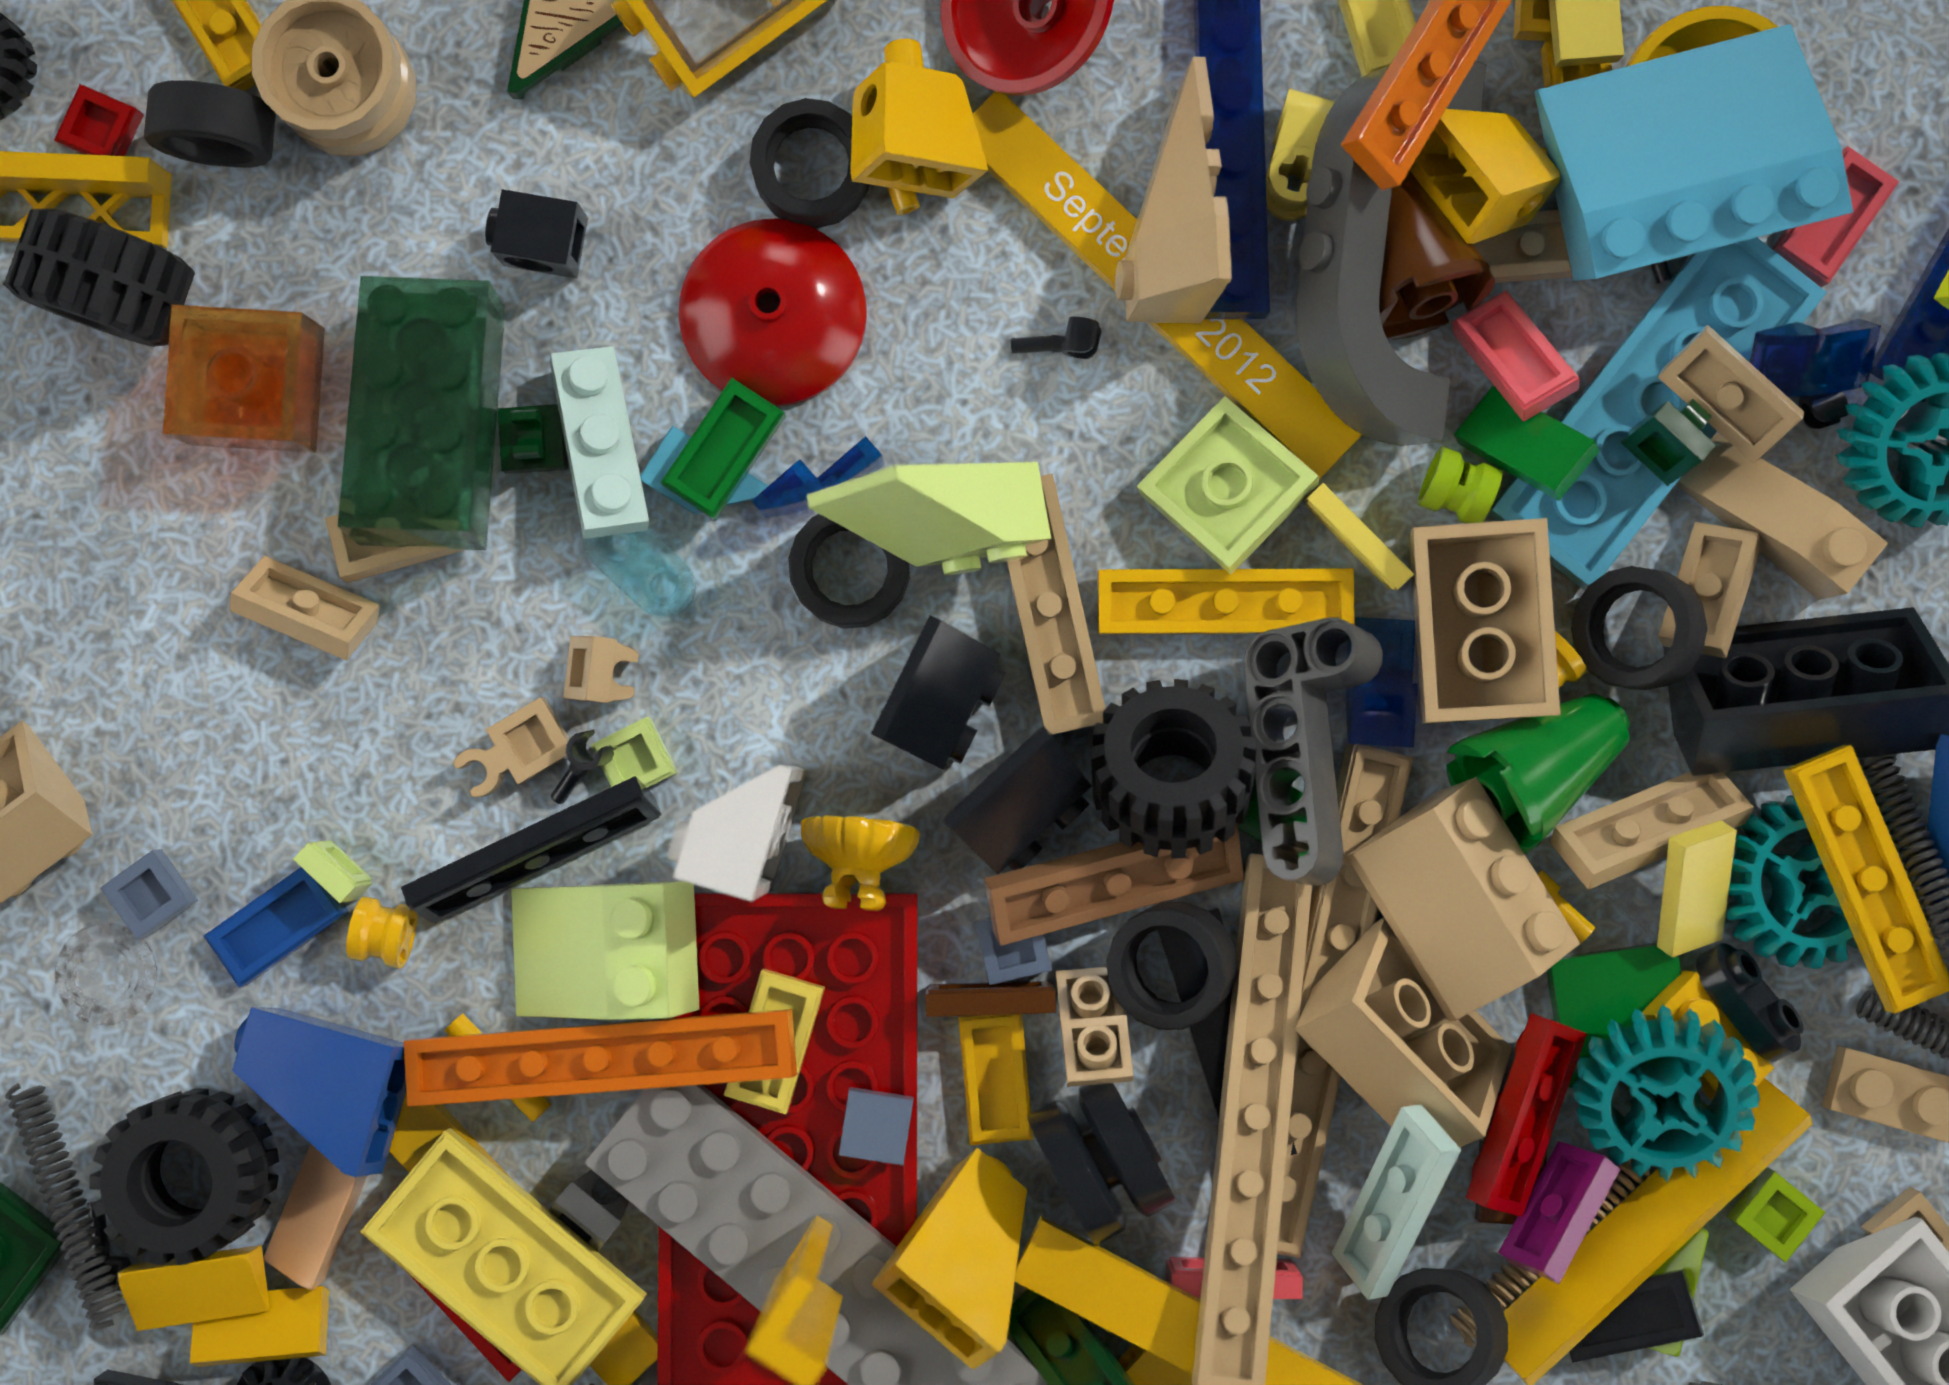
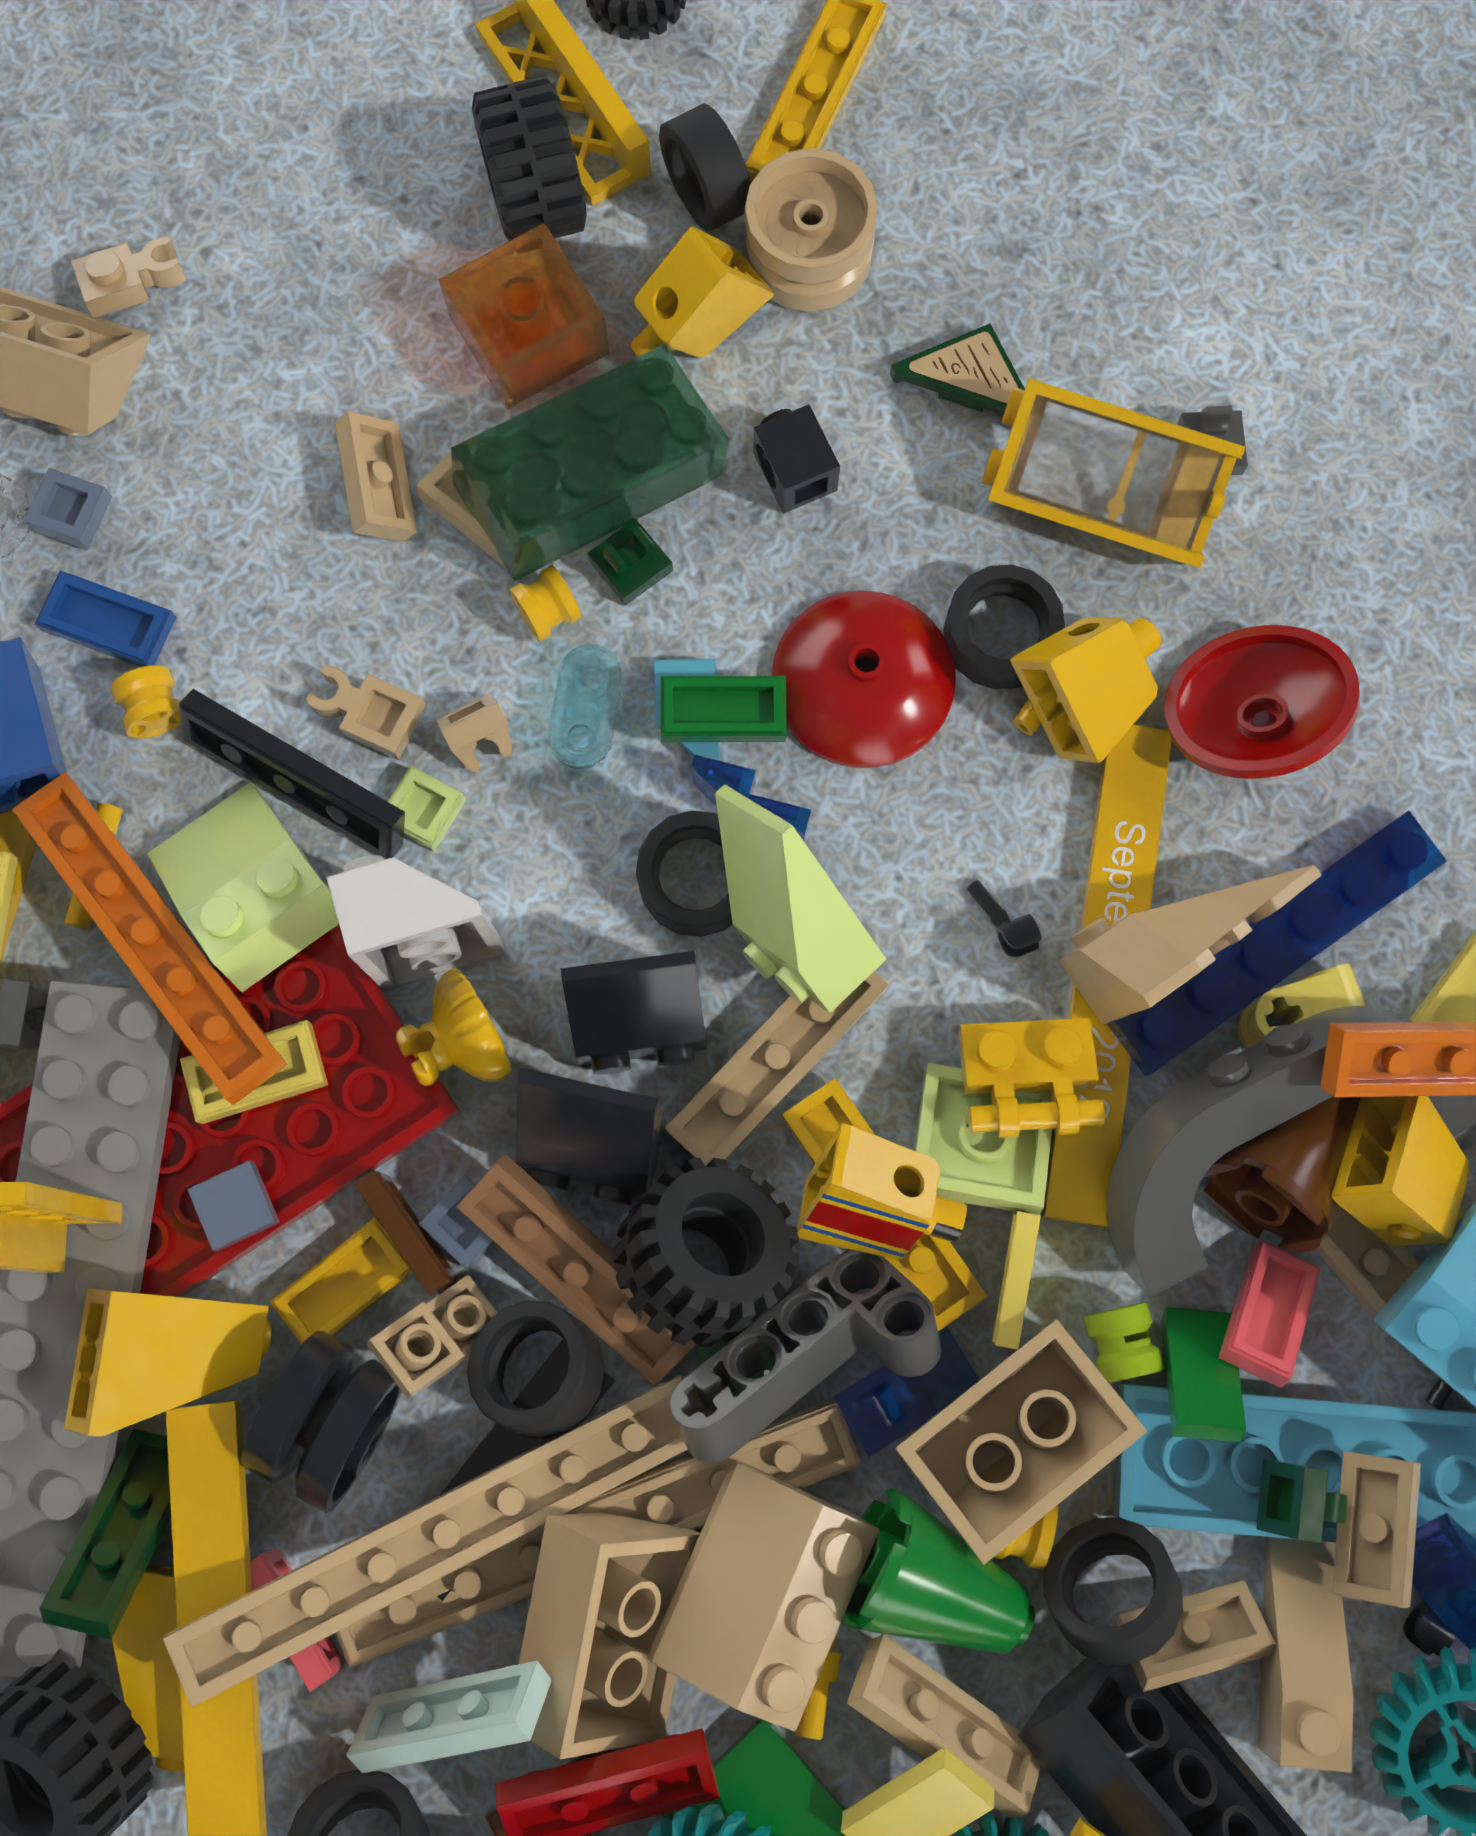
camera: 55 degrees right, 10 degrees down
(98, 124) = (650, 96): red tile -> none
(333, 217) = (698, 296): none -> yellow torso
(333, 870) = (175, 632): yellowish green tile -> none
(524, 536) = (545, 603): none -> yellow wheel
(579, 764) = (389, 765): black hand -> none
(599, 442) = (660, 609): light aqua plate -> none
(1189, 403) = (1028, 1058): none -> yellow plate
(1224, 604) = (875, 1197): none -> yellow torso

